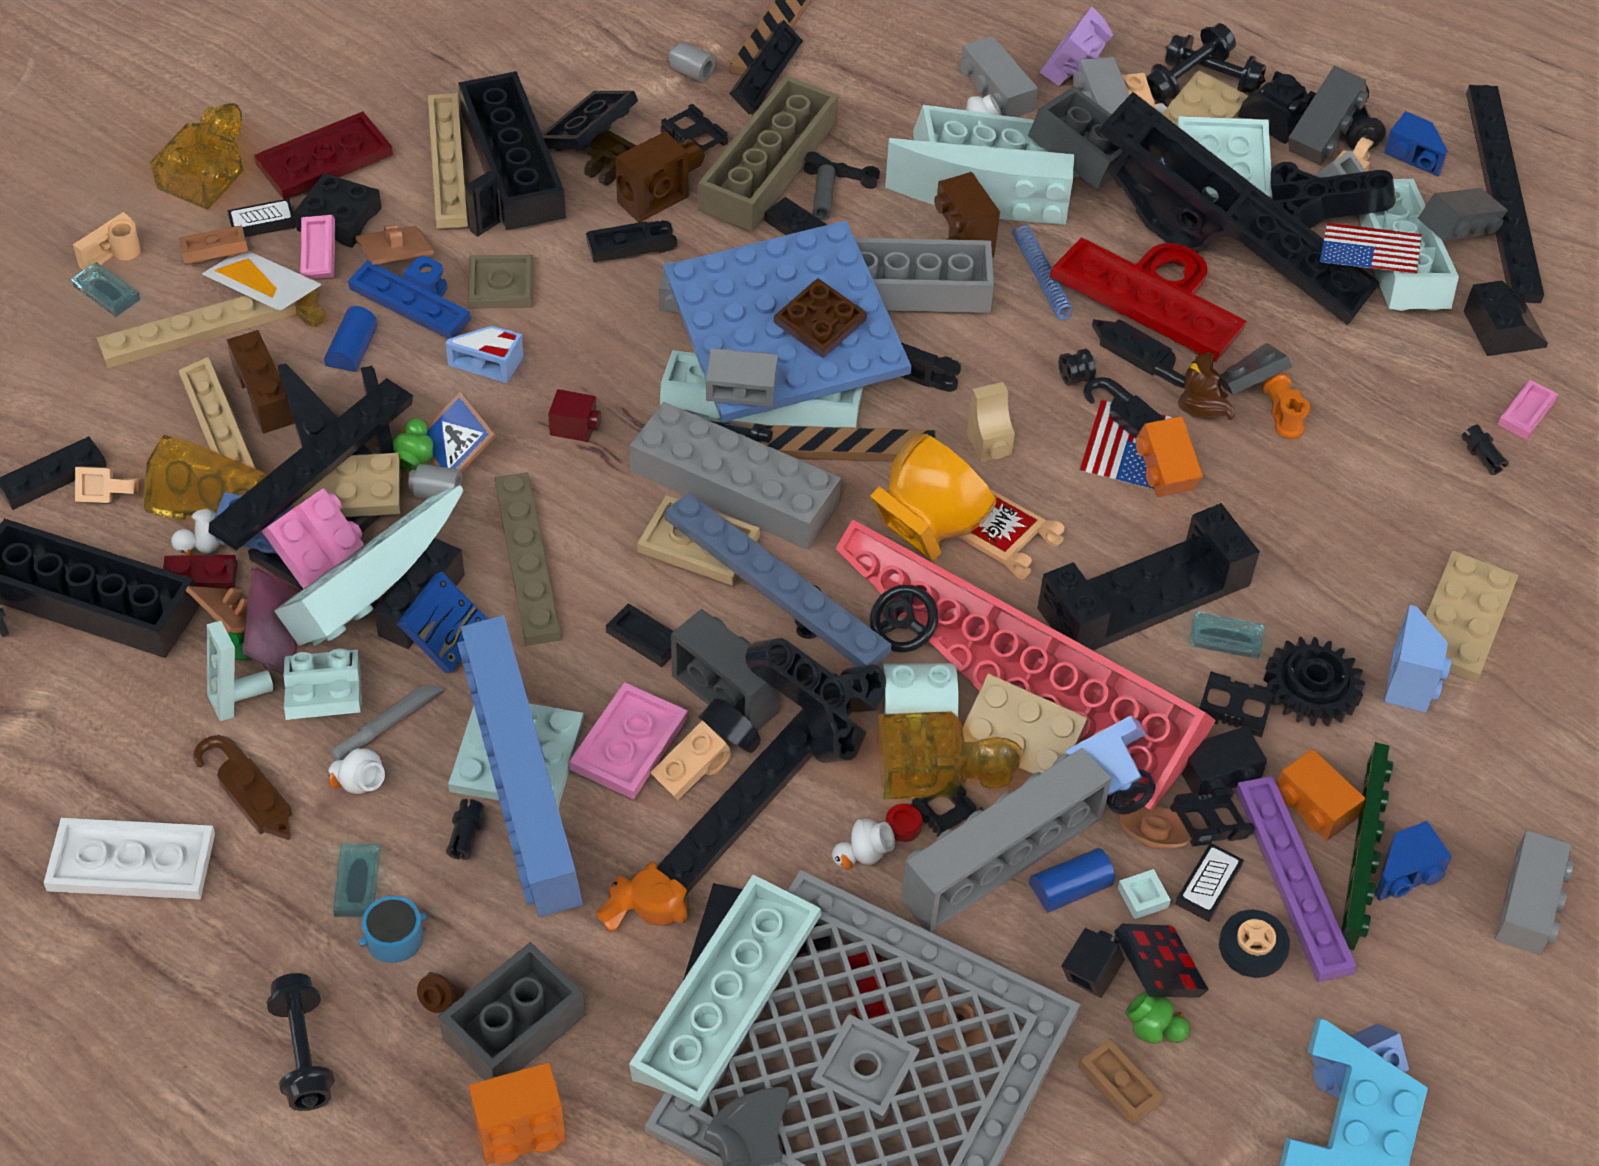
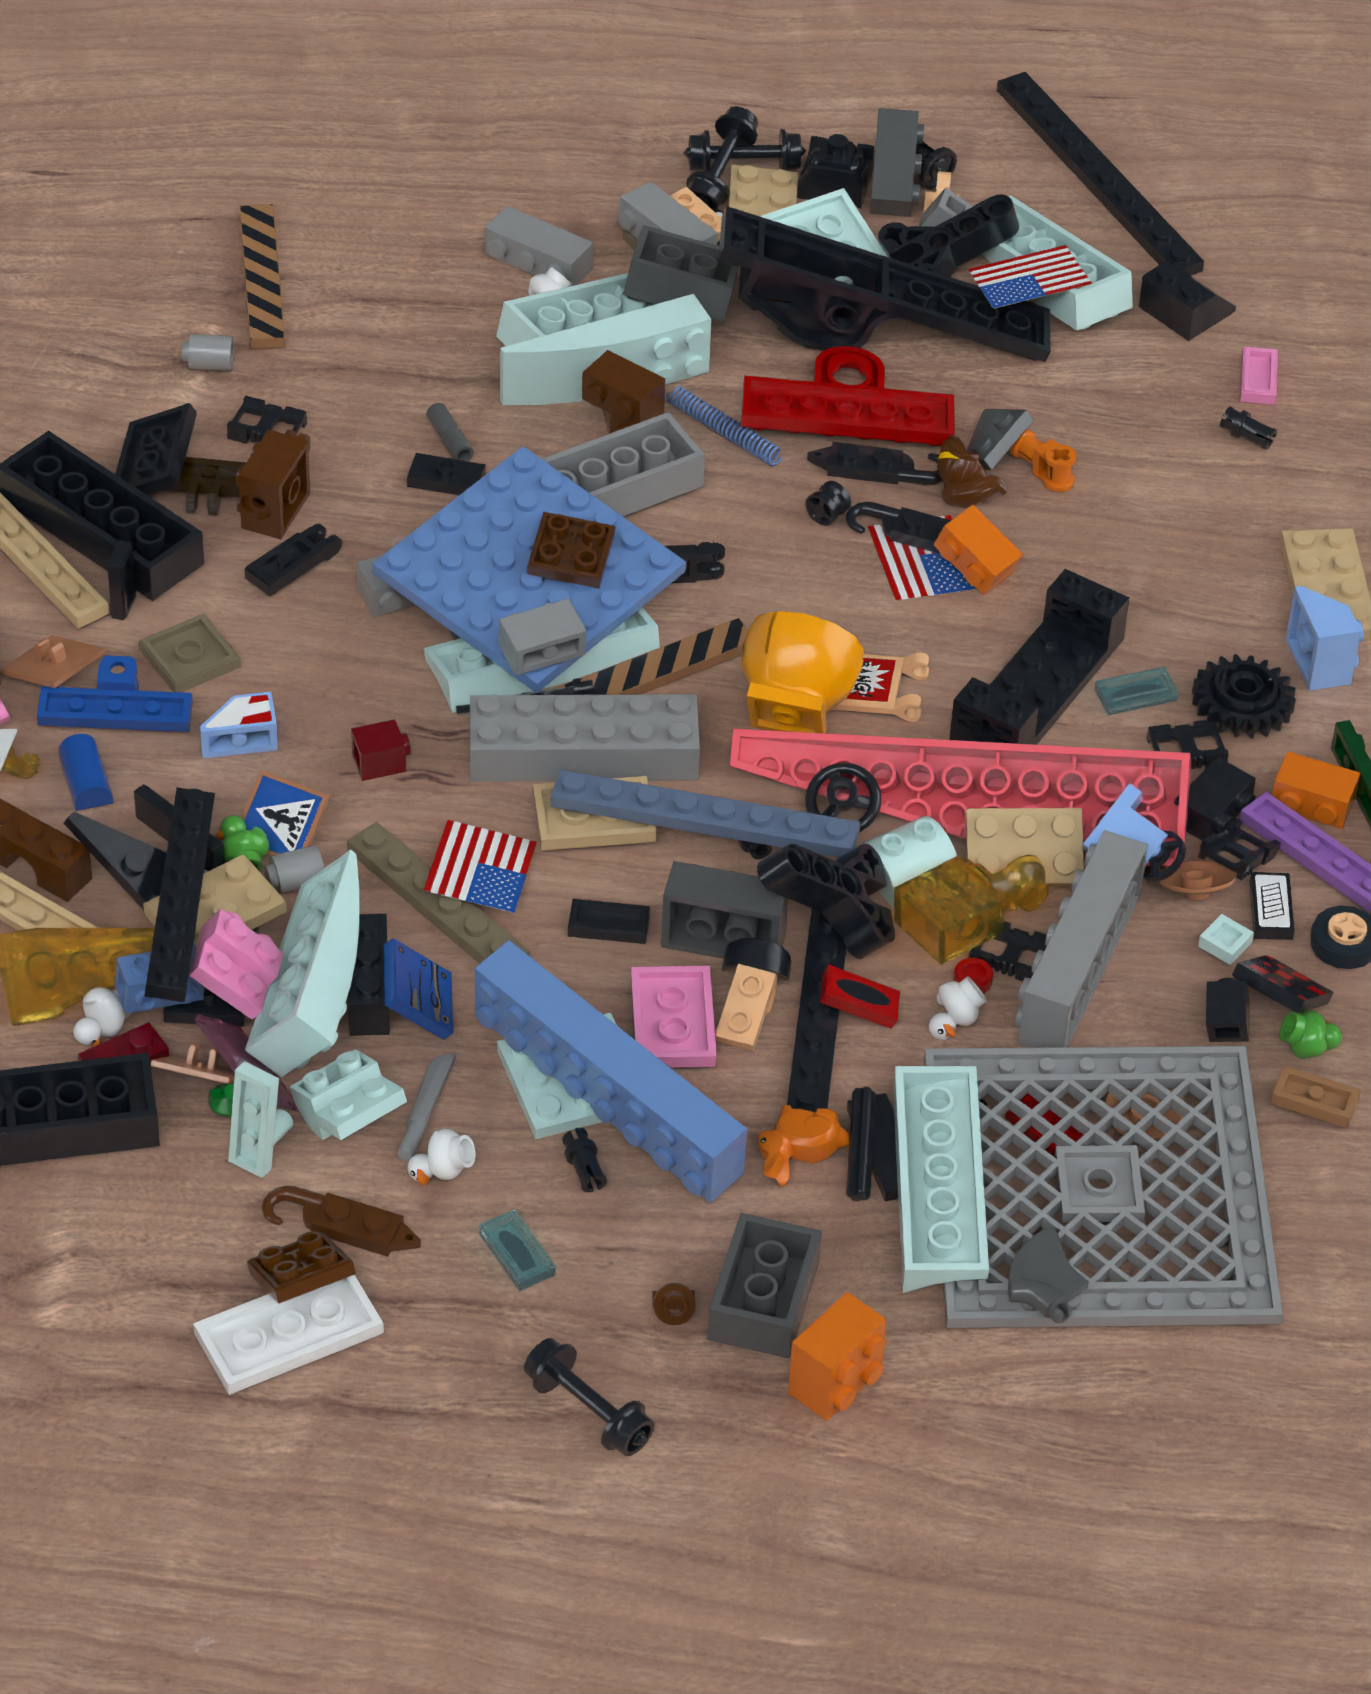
camera: 30 degrees left, 5 degrees down
(175, 811) = (300, 1266): none -> reddish brown tile
(392, 929) = (590, 1271): piece -> none
(577, 543) = (480, 866): none -> sticker
(691, 928) = (861, 1144): none -> black axle
(766, 67) = (291, 327): black tile -> none
(767, 153) = (370, 414): dark tan brick -> none
(789, 796) = (860, 996): none -> red tile
(867, 176) = (479, 401): black piece -> none
(990, 422) = (791, 584): tan arch -> none
(1073, 879) = (1156, 955): blue brick -> none
(1082, 42) = (598, 186): lavender brick -> none
(1417, 143) = (992, 159): blue slope -> none
(1462, 214) = (1088, 211): dark grey brick -> none

